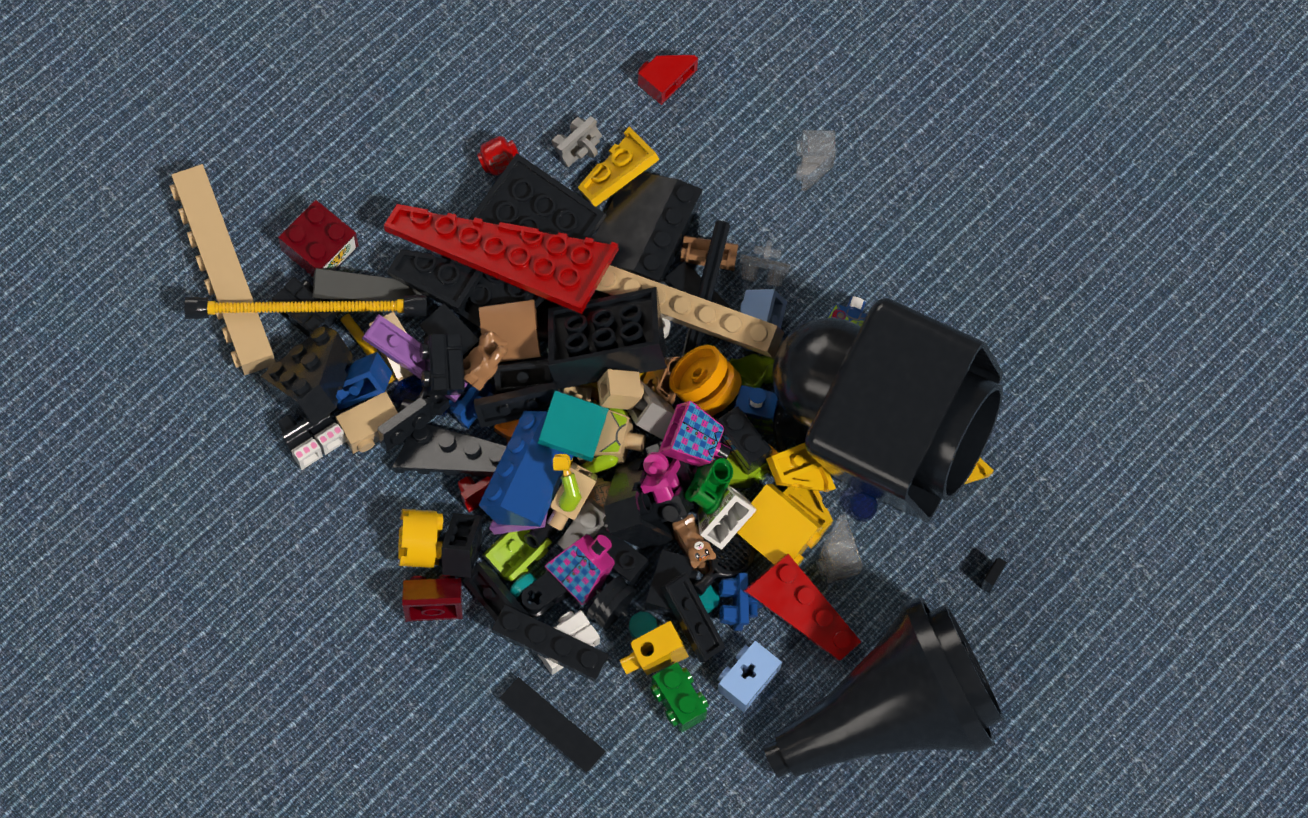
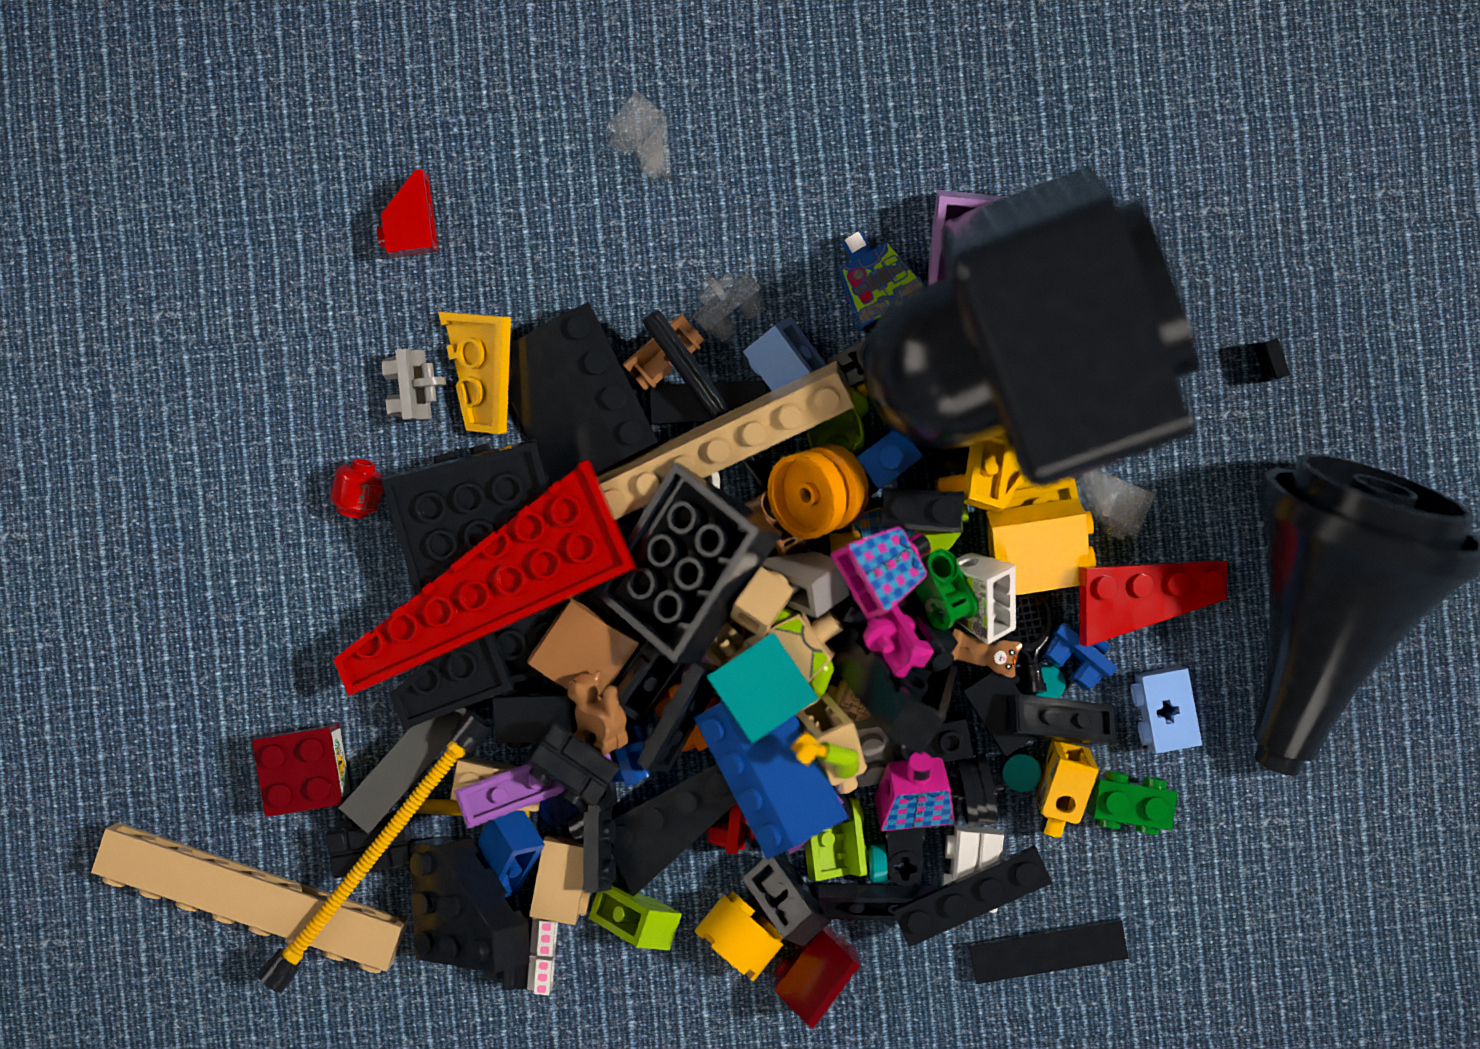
camera: 40 degrees left, 20 degrees up
(381, 479) = (636, 918): none -> lime slope

